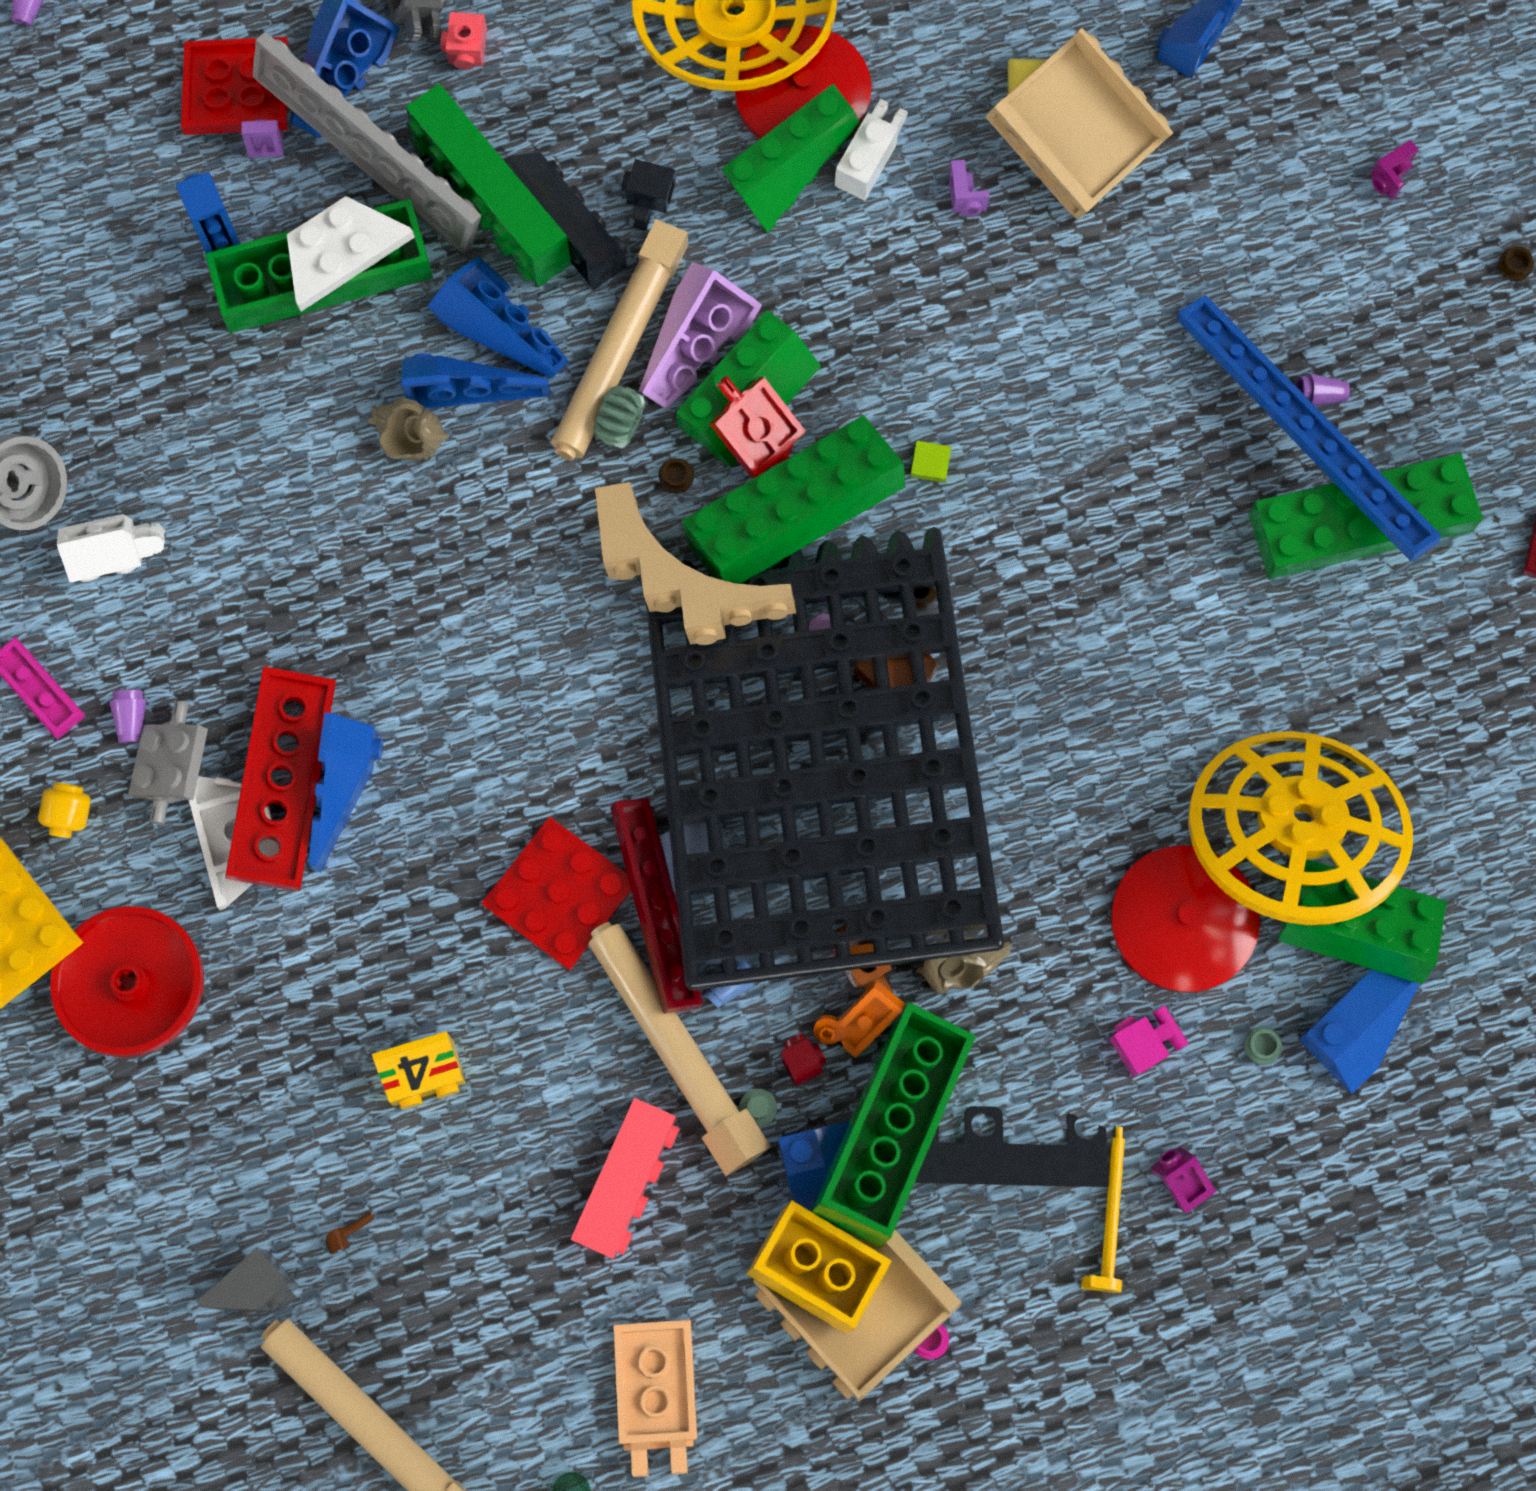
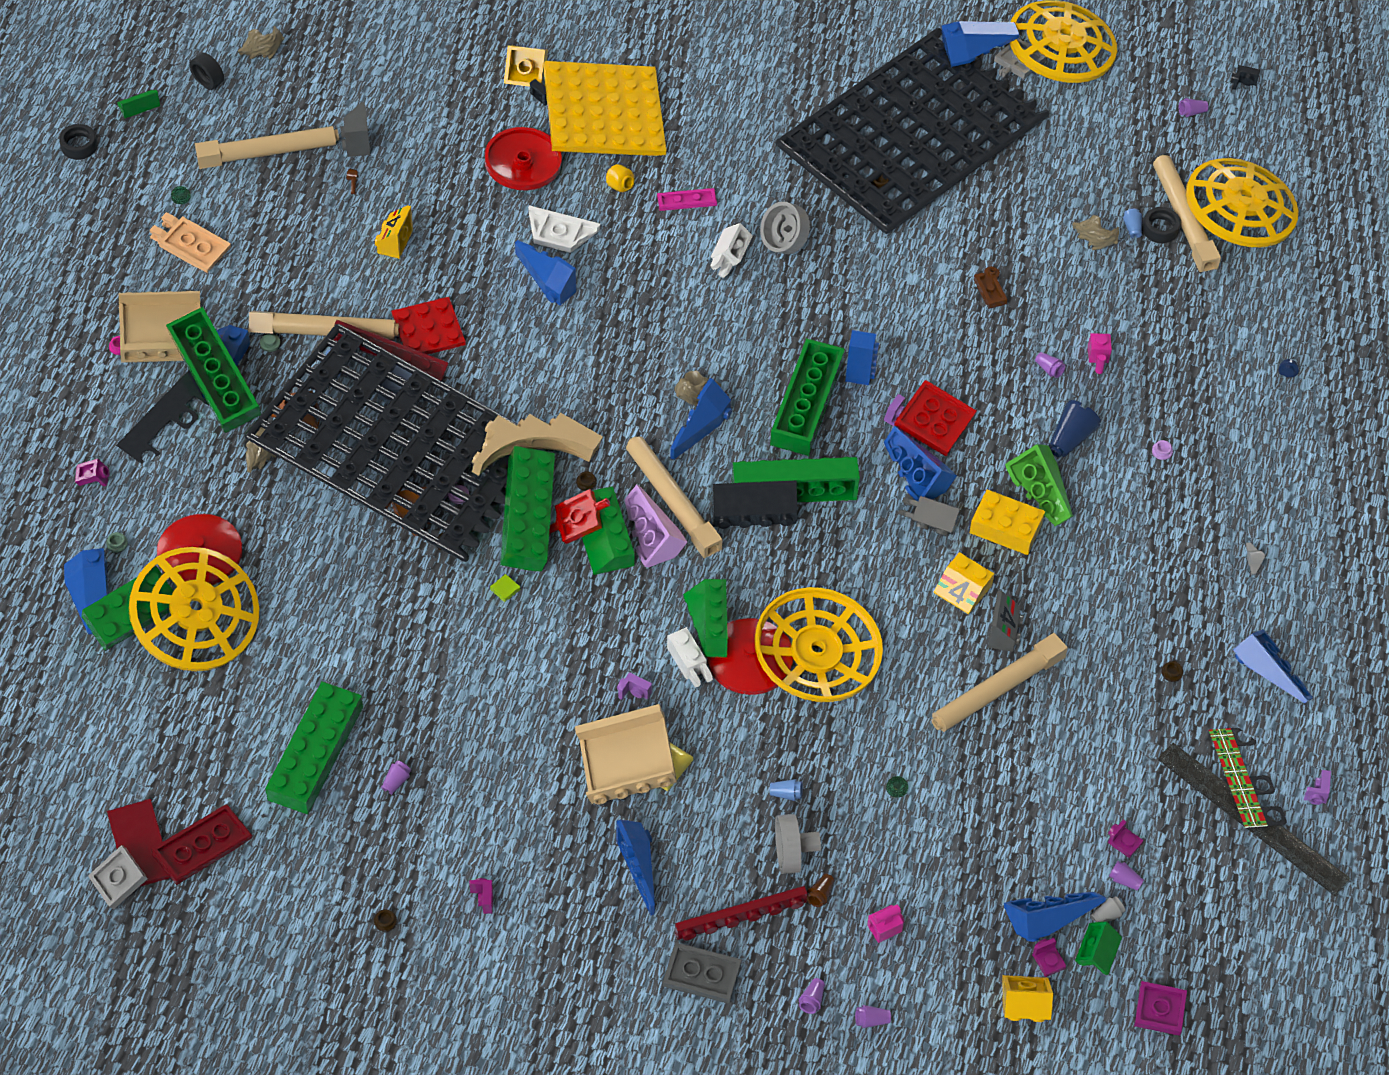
camera: 125 degrees right, 20 degrees down
(128, 714) = (645, 221): medium lavender cone -> none
(168, 762) = (609, 221): light grey plate -> none
(259, 791) = (568, 240): red plate -> none
(339, 247) = (804, 397): white wing -> none
(364, 143) = (859, 435): light grey plate -> none
(465, 40) = (888, 524): coral brick -> none
(477, 307) = (720, 453): blue wedge -> none
(619, 416) = (631, 468): sand green gear -> none
(624, 1179) = (284, 278): coral brick -> none
(649, 189) = (743, 553): black brick -> none
(802, 1059) = (274, 367): dark red plate -> none
(819, 1267) = (179, 302): yellow brick -> none
(861, 1021) = (266, 395): orange hinge -> none
(1106, 1281) = (80, 417): yellow piece -> none
(1142, 1045) = (161, 495): dark pink brick -> none
(1309, 428) = (378, 740): blue plate -> none

